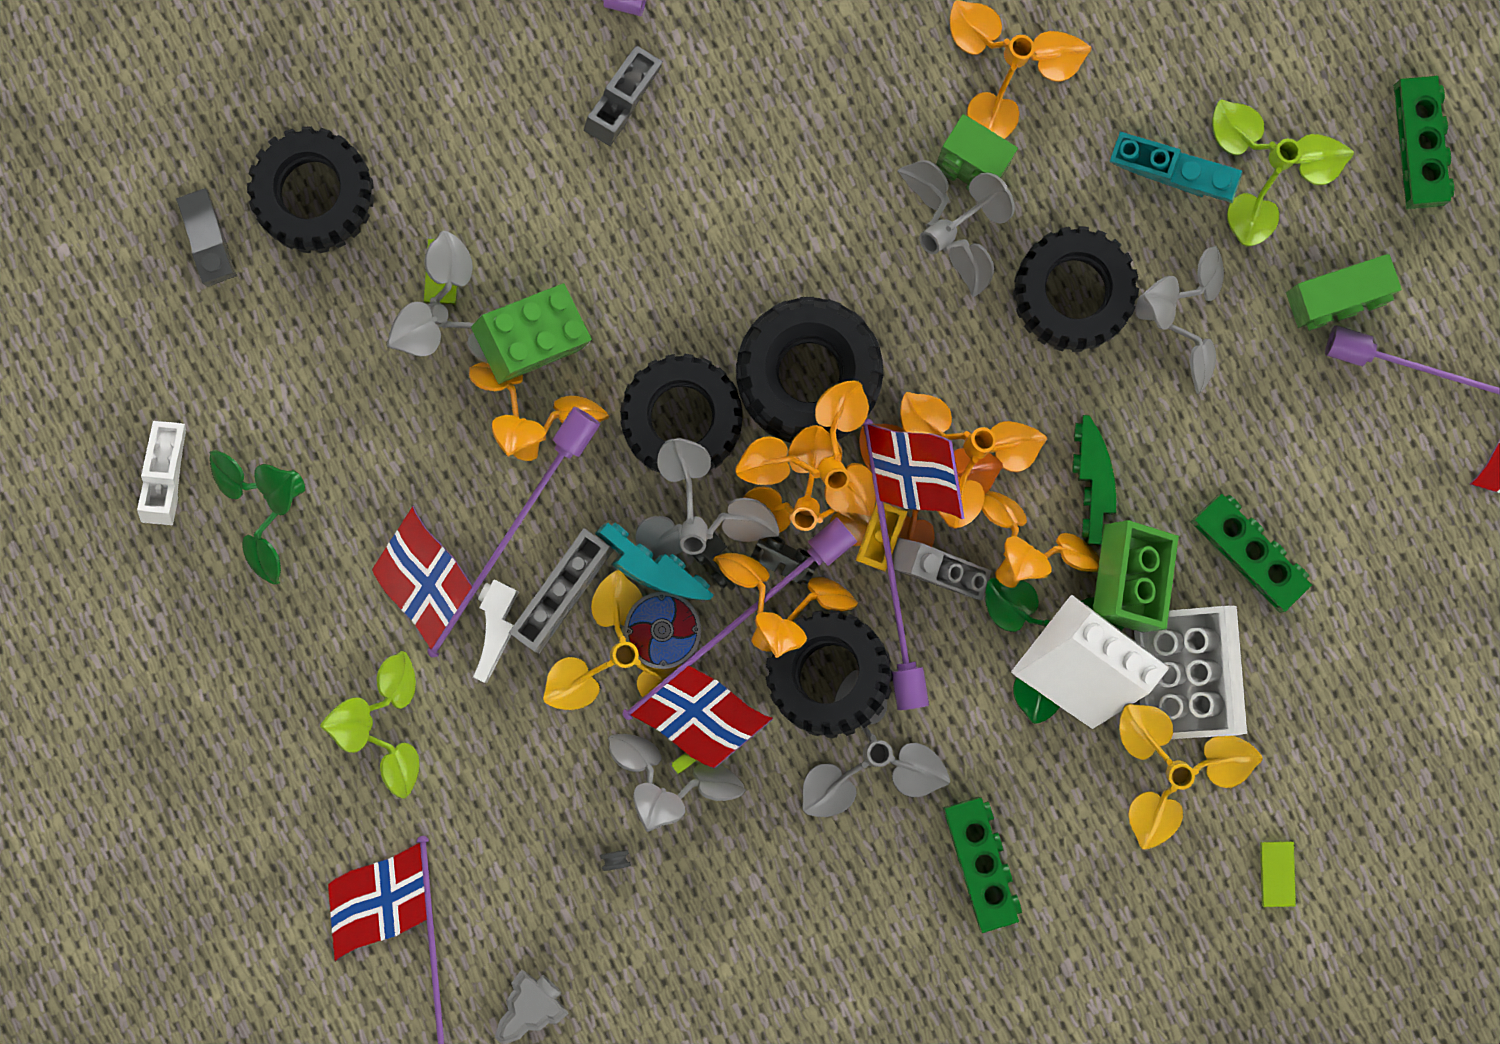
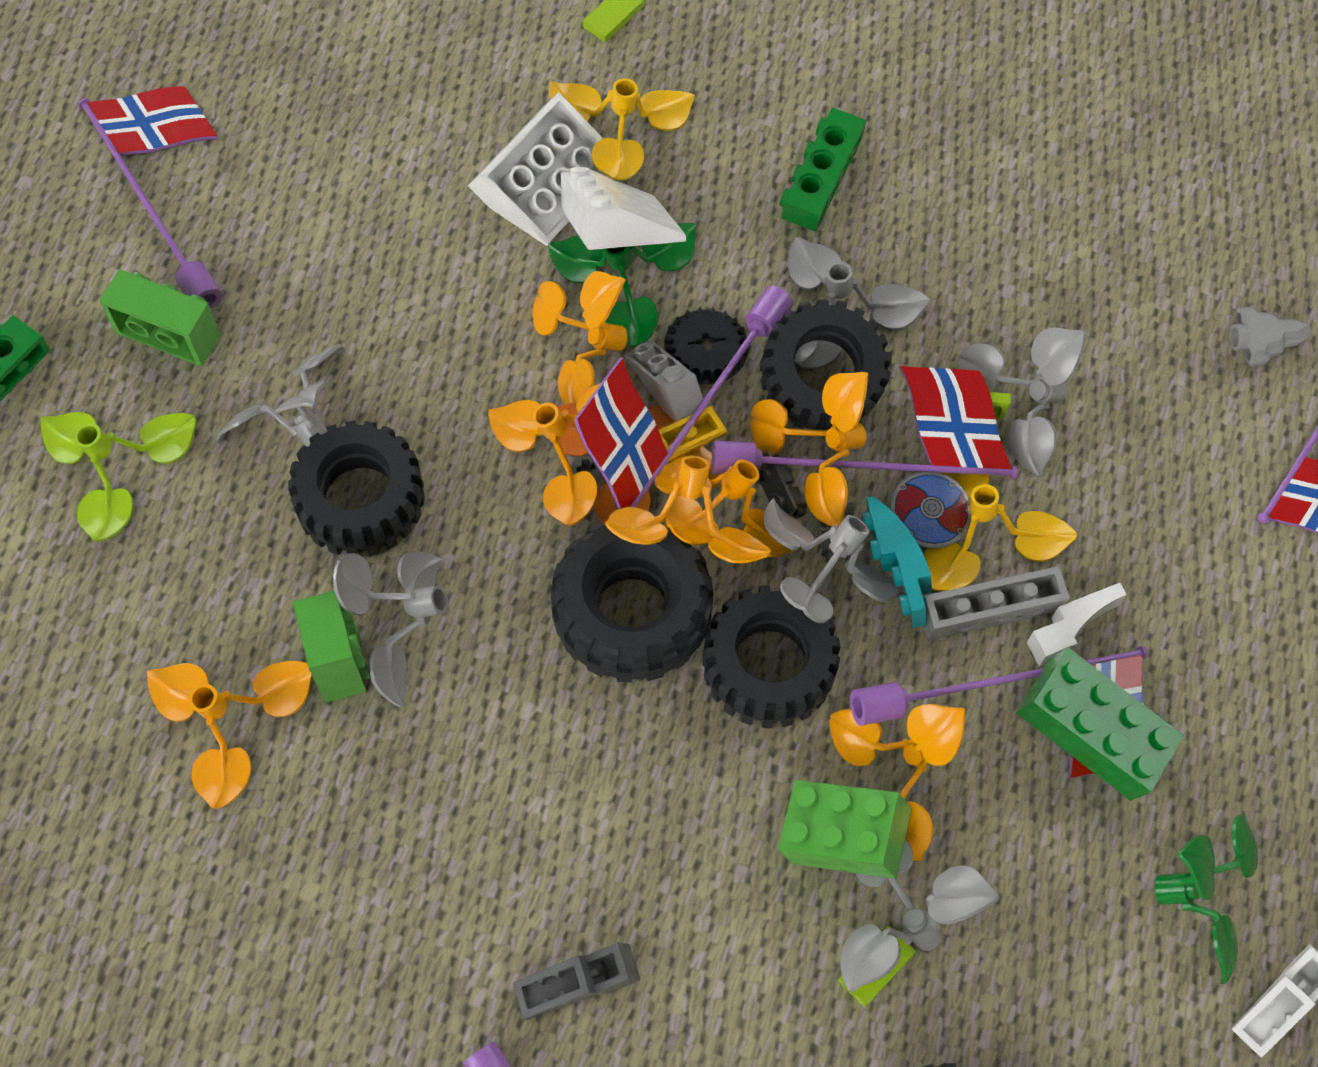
camera: 140 degrees left, 20 degrees down
(352, 721) = (1277, 611): lime plant -> none
(419, 556) = (1100, 724): none -> green brick
(615, 860) = (1111, 381): dark grey bush -> none
(961, 630) = (723, 331): none -> black gear
(1094, 466) = (477, 350): green slope -> none
(1135, 576) = (523, 250): bright green brick -> none
(1175, 168) = (183, 516): teal slope -> none
(1294, 578) = (421, 168): green brick -> none

